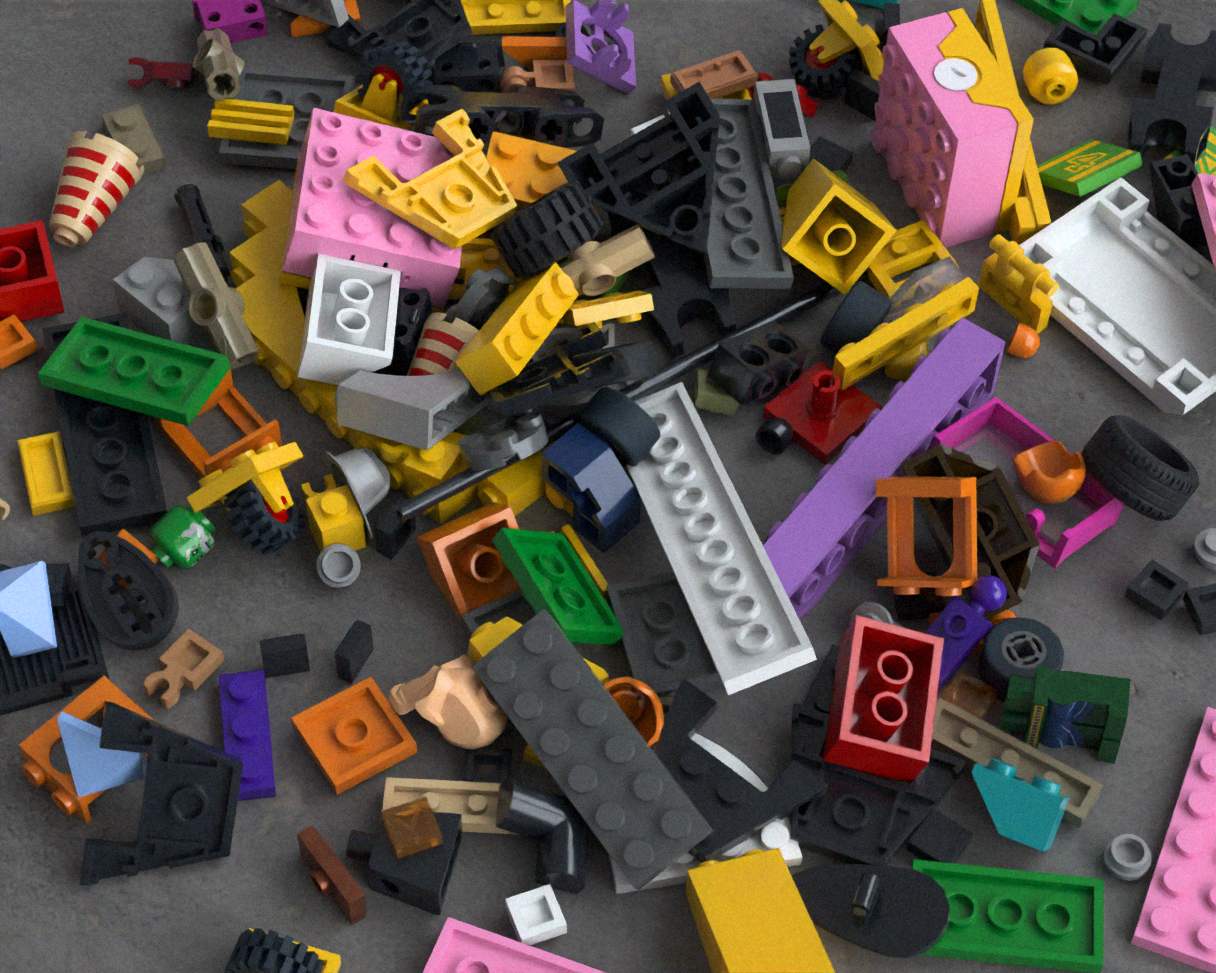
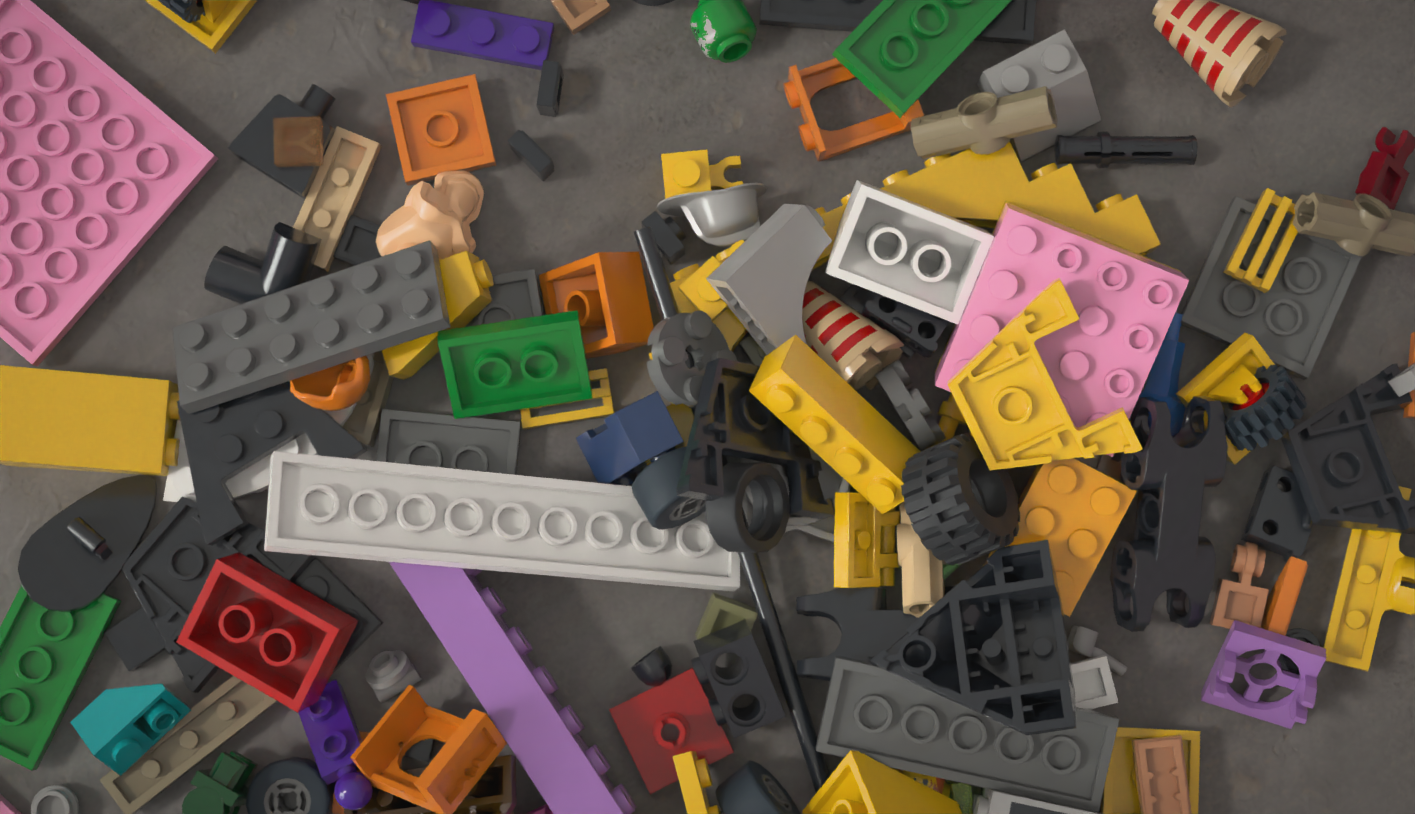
camera: 115 degrees right, 30 degrees up
(133, 131) = (1295, 113): dark tan plate -> none
(256, 497) = (734, 104): plate -> none
(330, 875) = (296, 65): copper plate -> none
(338, 566) = (640, 170): light grey plate -> none
(536, 915) = (192, 236): white plate -> none
(971, 695) = (277, 732): clear orange tile -> none

